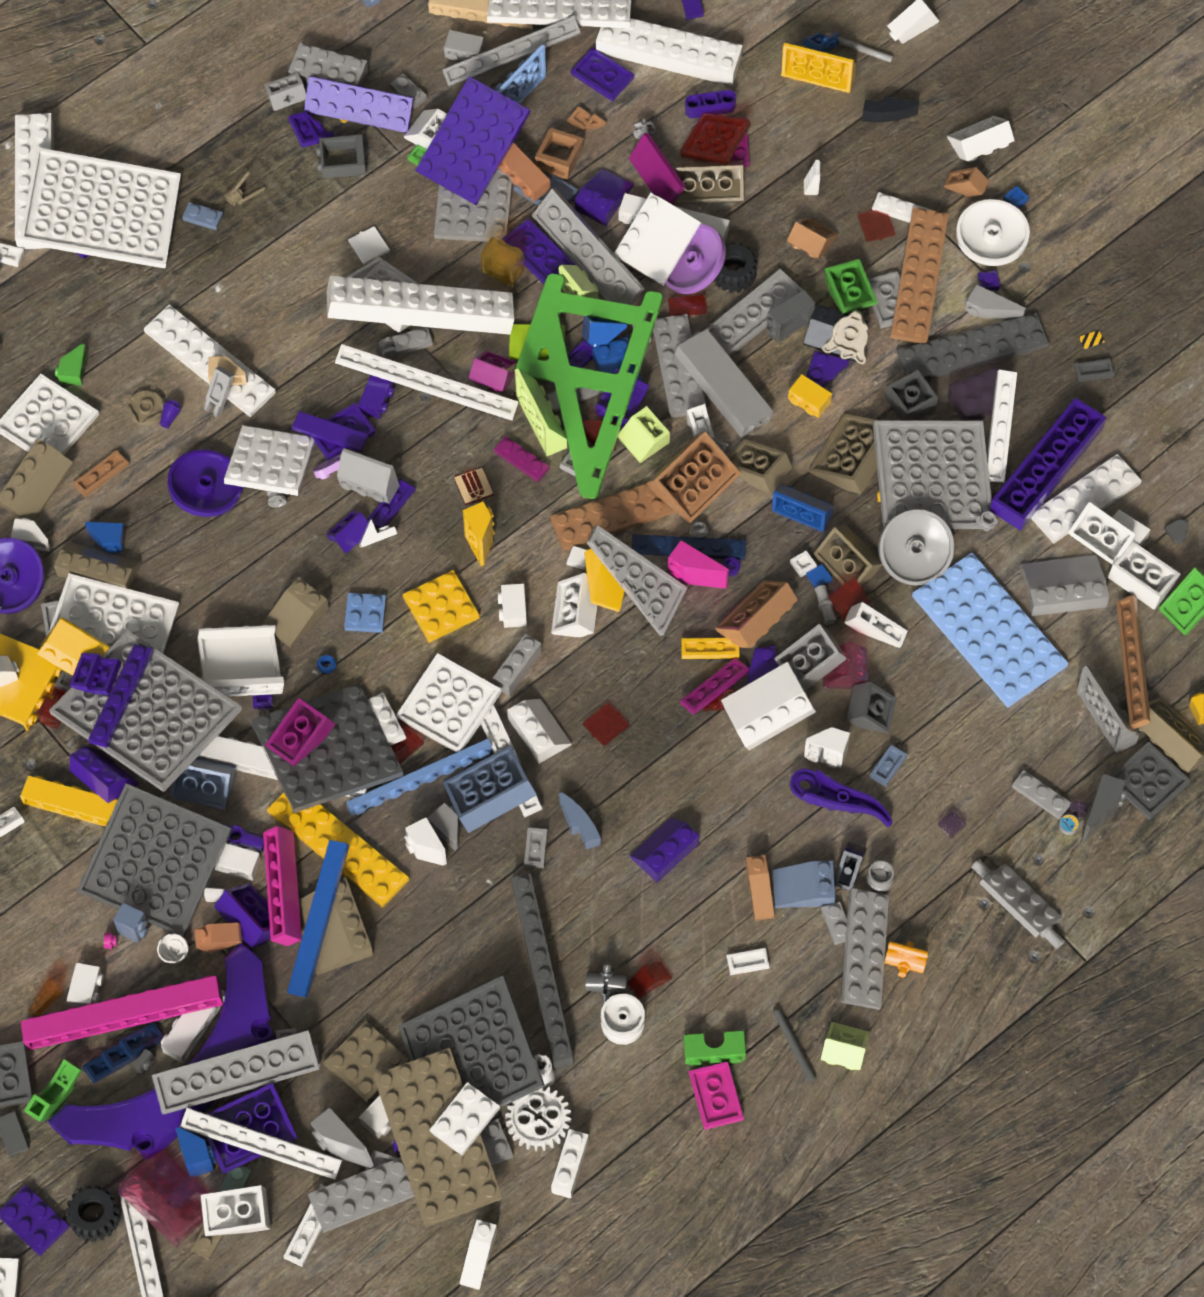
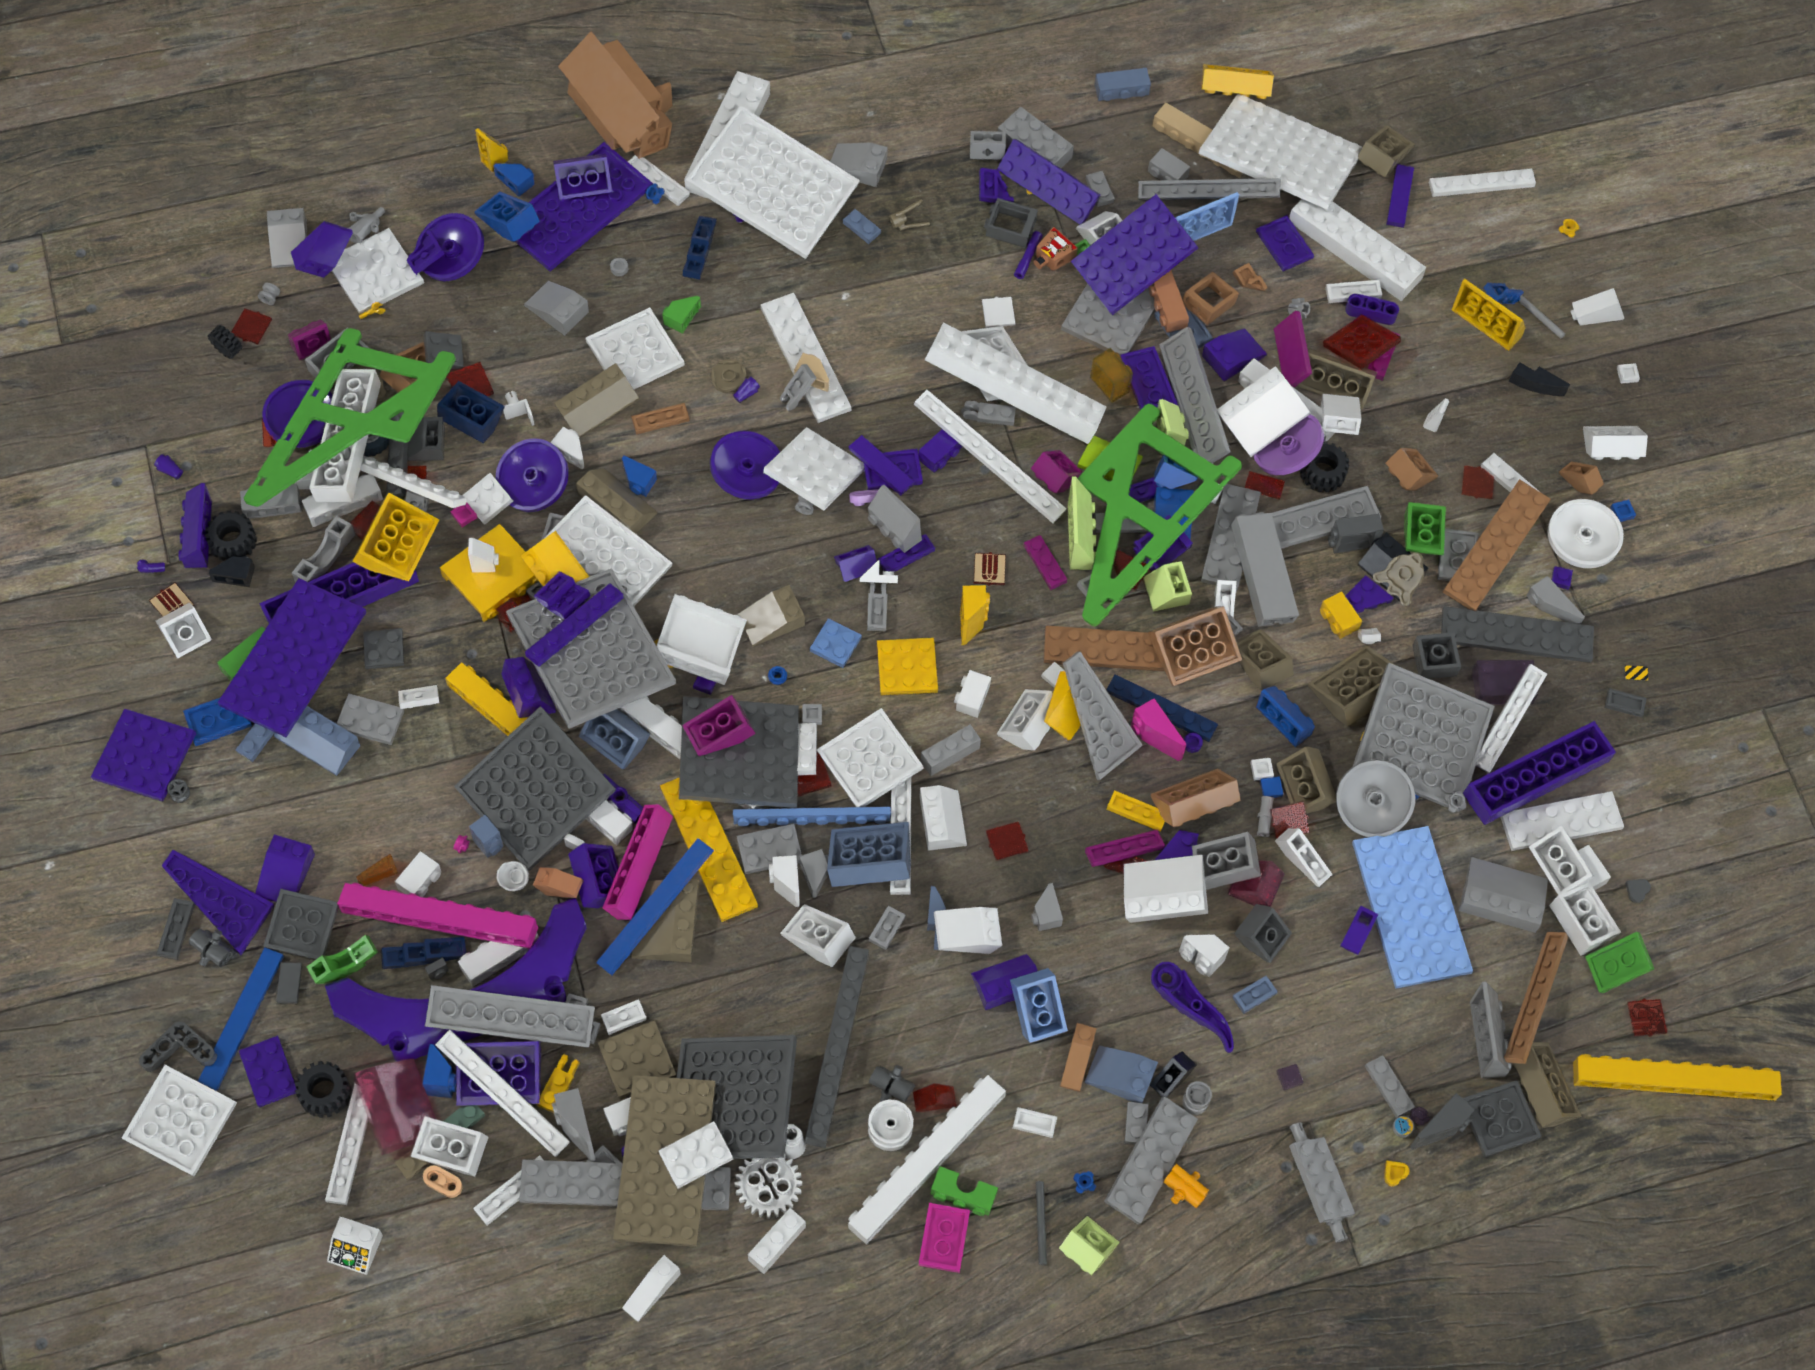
camera: 20 degrees right, 0 degrees up
(59, 297) = (699, 247): none -> dark blue slope
(172, 154) = (861, 161): none -> light grey slope
(244, 1245) = (443, 1182): none -> light nougat plate
(304, 1115) = (557, 1083): none -> yellow hinge
(336, 1029) = (623, 1017): none -> white plate
(371, 169) = (1031, 247): none -> dark purple piece
(375, 685) = (812, 713): none -> light grey plate
(388, 565) = (877, 609): none -> light grey hinge
(388, 826) = (760, 847): none -> light grey plate
(395, 166) = (1054, 251): none -> nougat torso
(477, 880) = (819, 934): none -> white slope
(611, 817) = (968, 930): none -> white slope
(668, 1034) = (926, 1159): none -> white brick
(672, 770) = (1047, 910): none -> light grey slope
(676, 98) = (1341, 291): none -> white plate
(698, 530) = (1178, 696): light grey plate -> none
(705, 856) = (1038, 1005): none -> medium blue brick
(727, 212) = (1341, 414): none -> white panel
(816, 987) = (1085, 1176): none -> blue plate
(843, 404) = (1369, 635): none -> white plate
(954, 669) = (1359, 930): none -> dark purple slope
(965, 70) = (1628, 373): none -> white tile
(1079, 867) = (1395, 1172): none -> yellow tile

